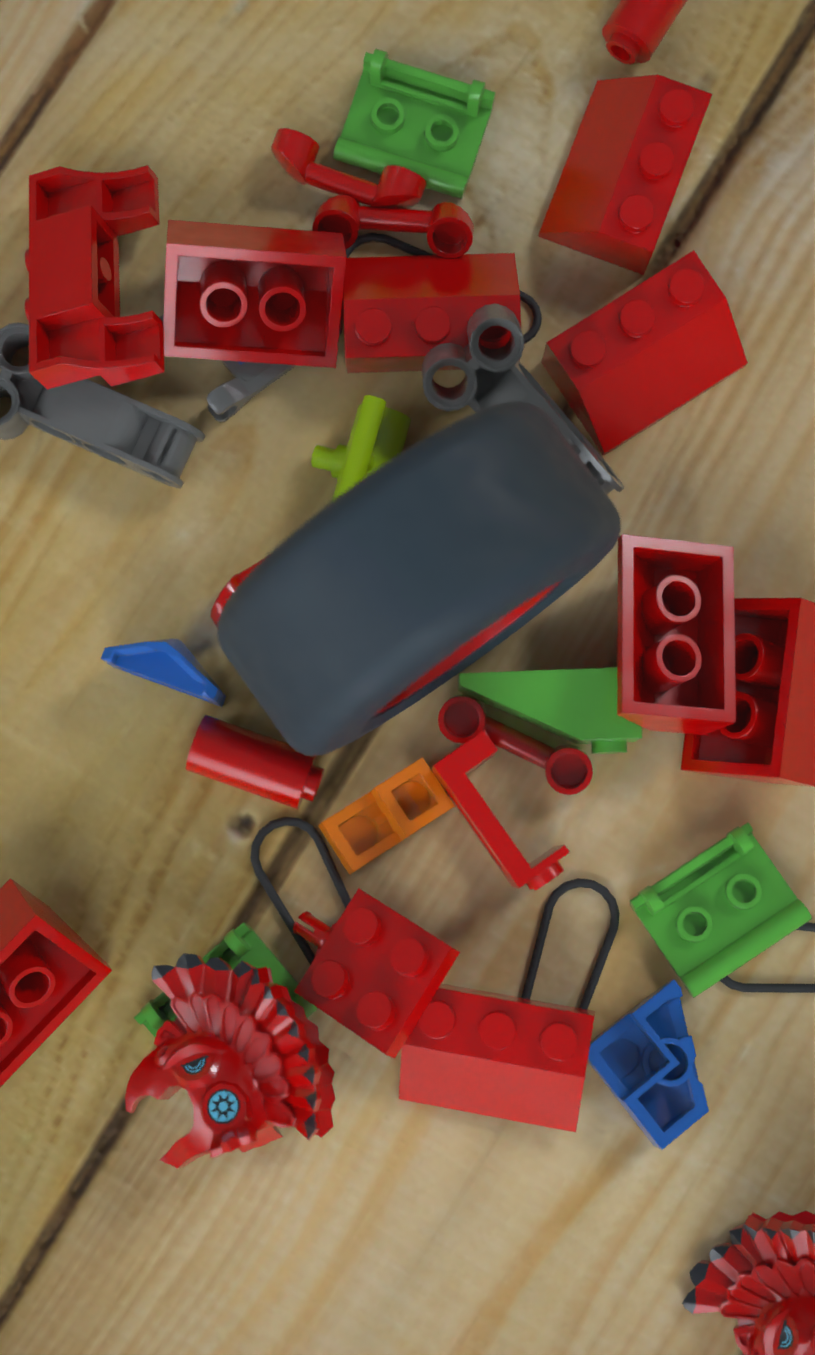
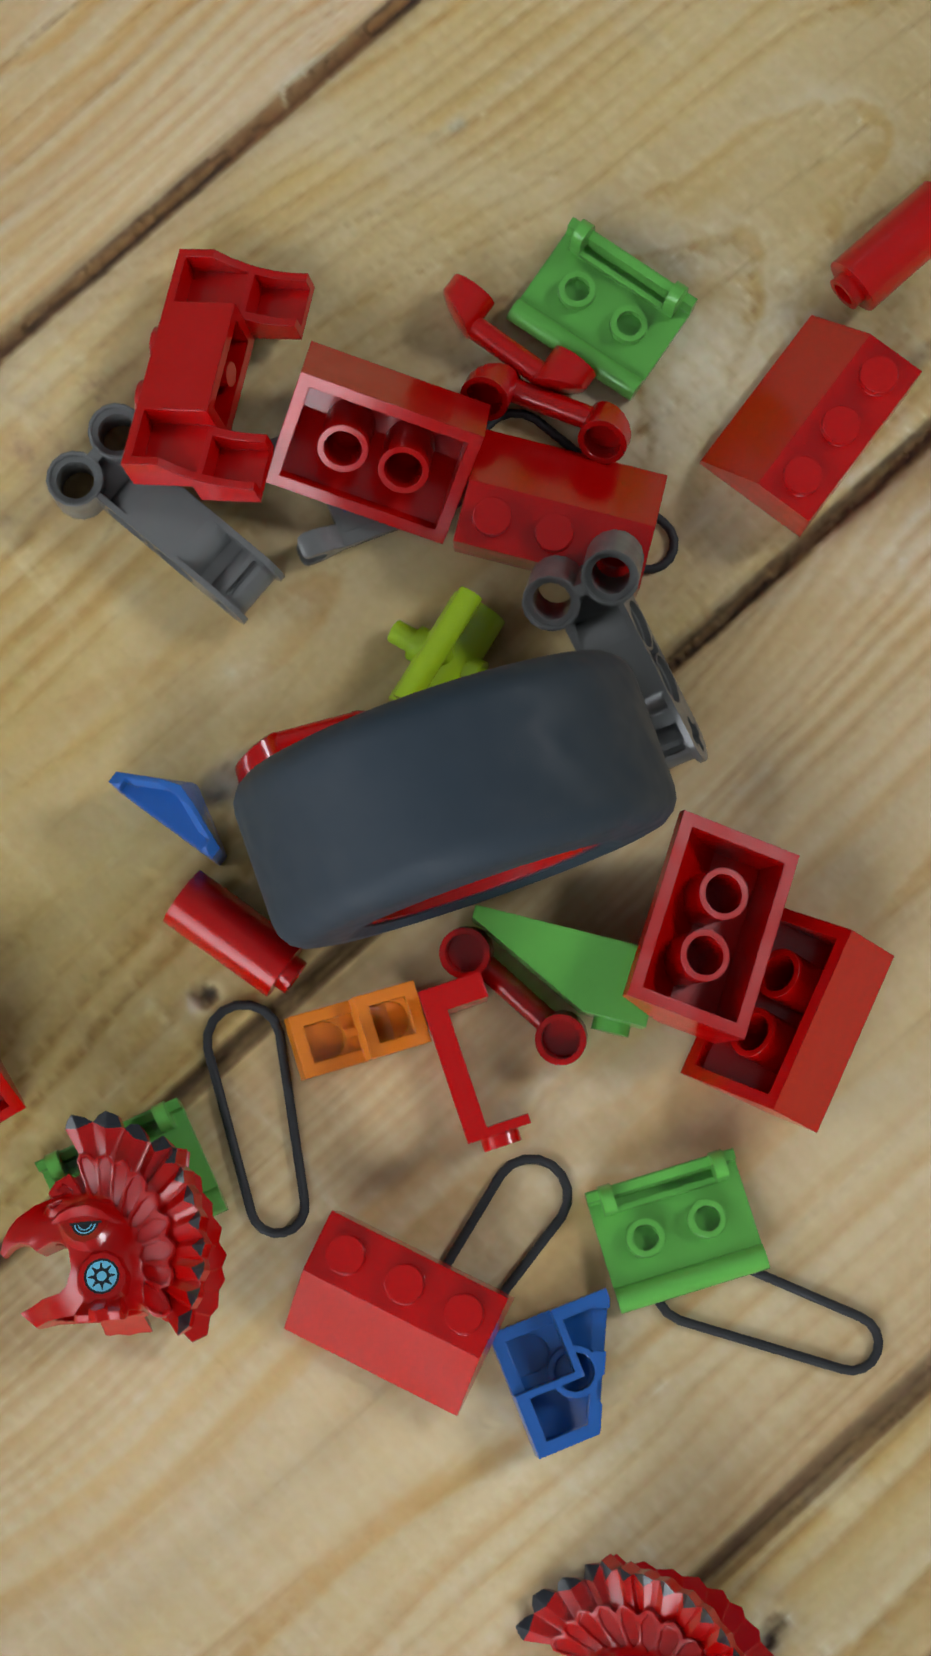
camera: 15 degrees right, 0 degrees up
(373, 971) = (295, 1185): red plate -> none
(646, 353) = (774, 624): red slope -> none

